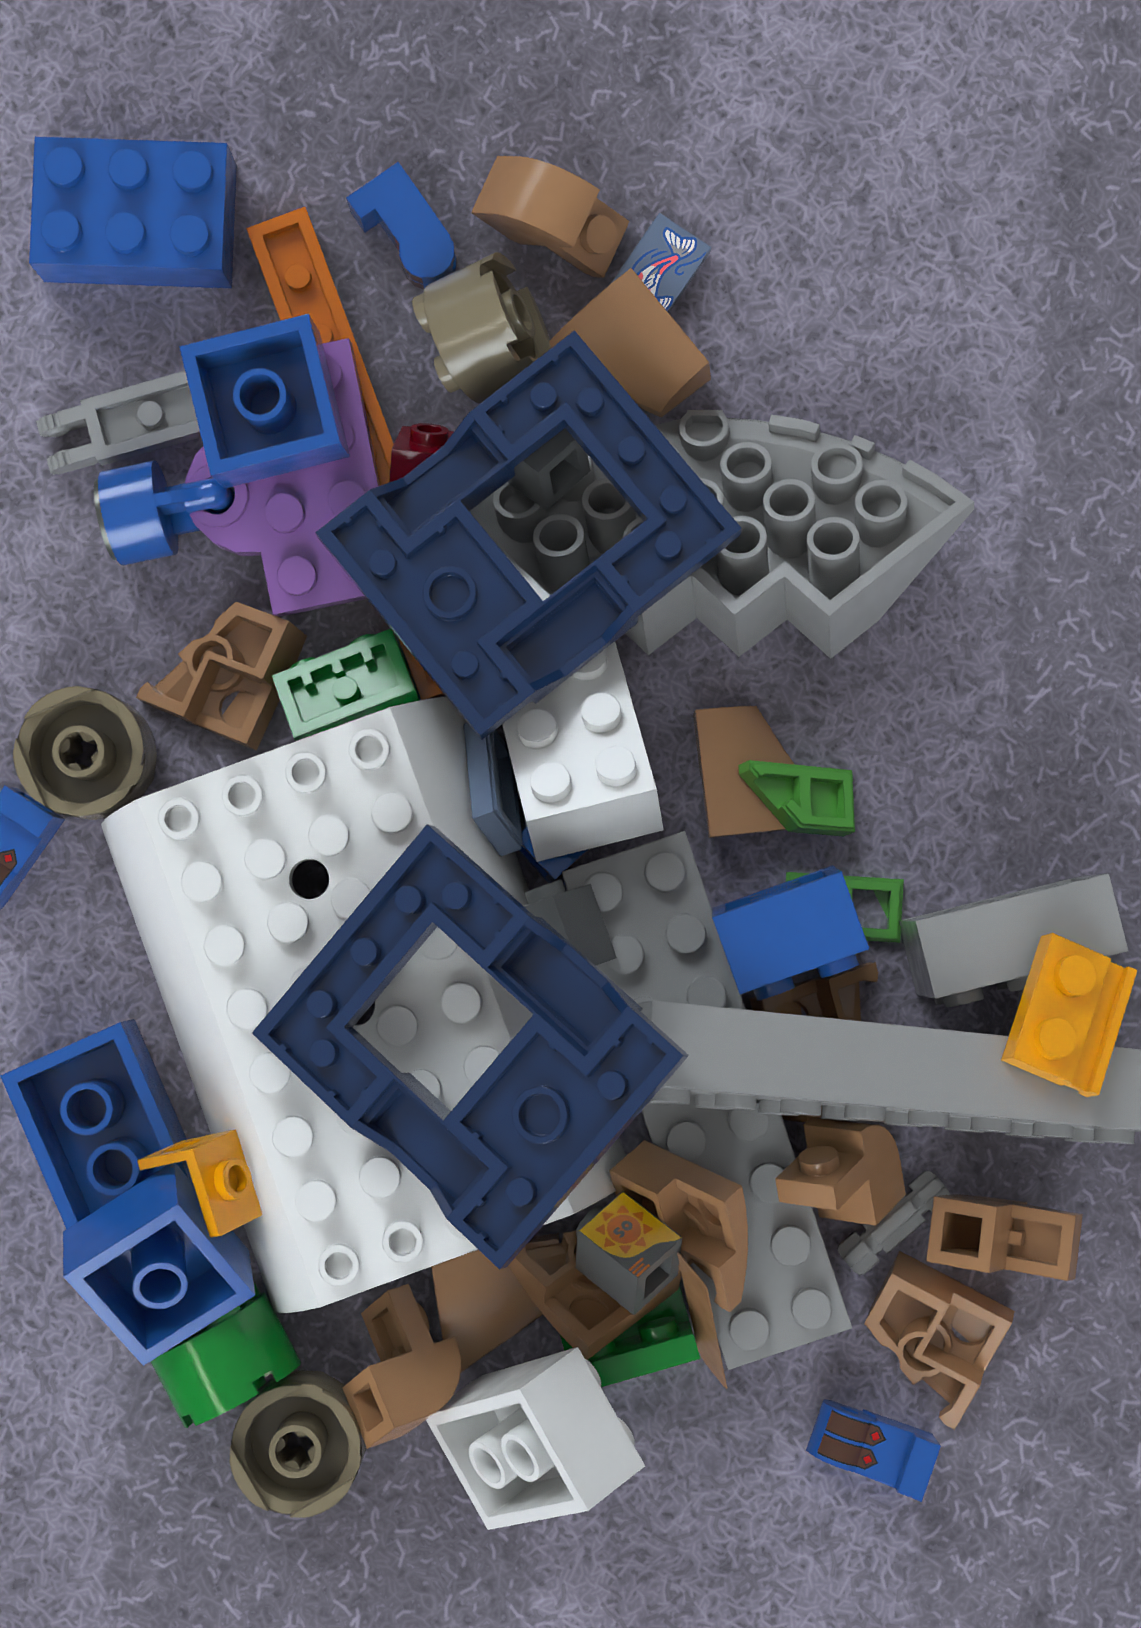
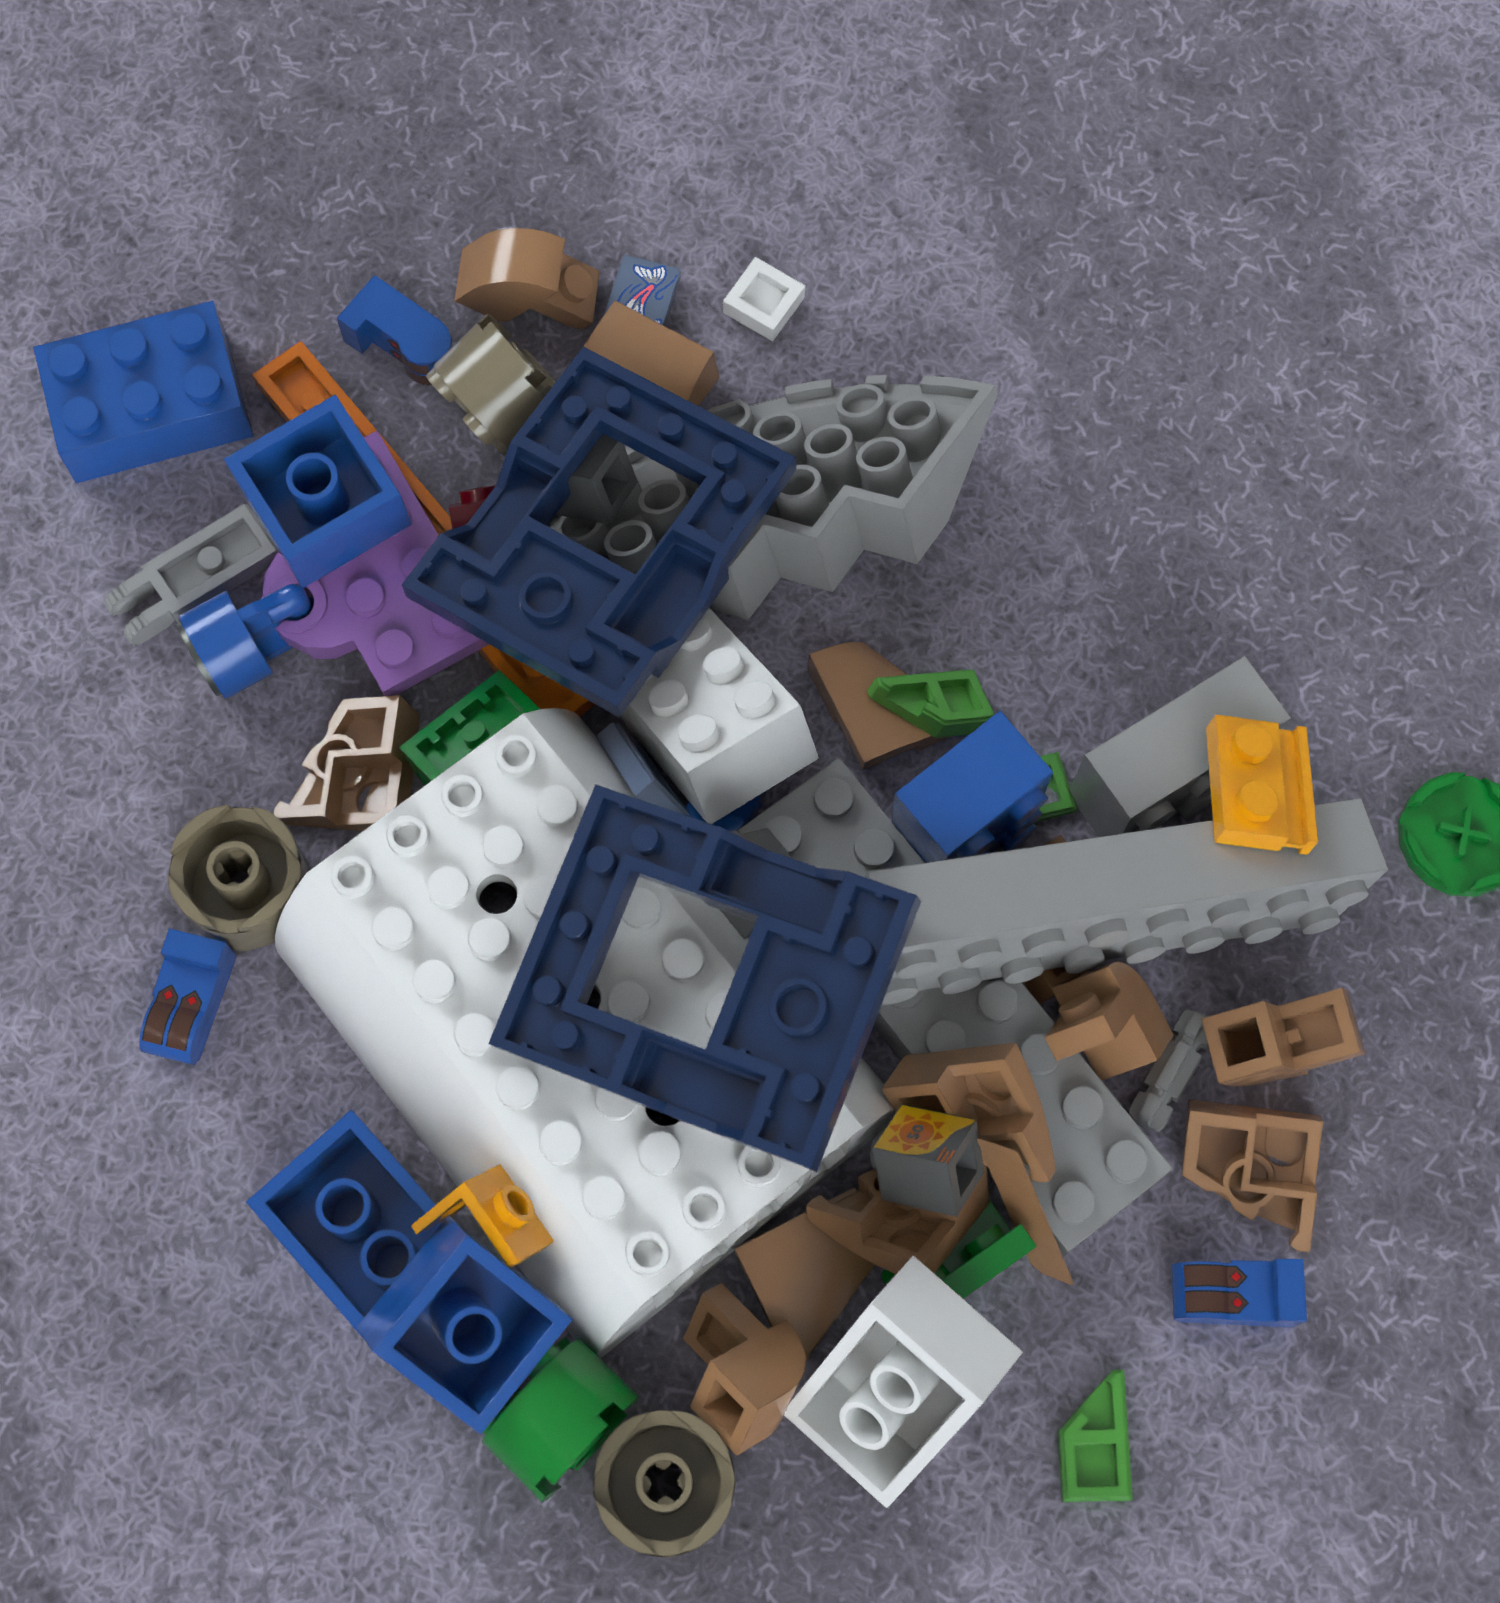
camera: 20 degrees left, 15 degrees down
(695, 1532) = (1096, 1446): none -> bright green tile
(784, 308) = (764, 299): none -> white plate

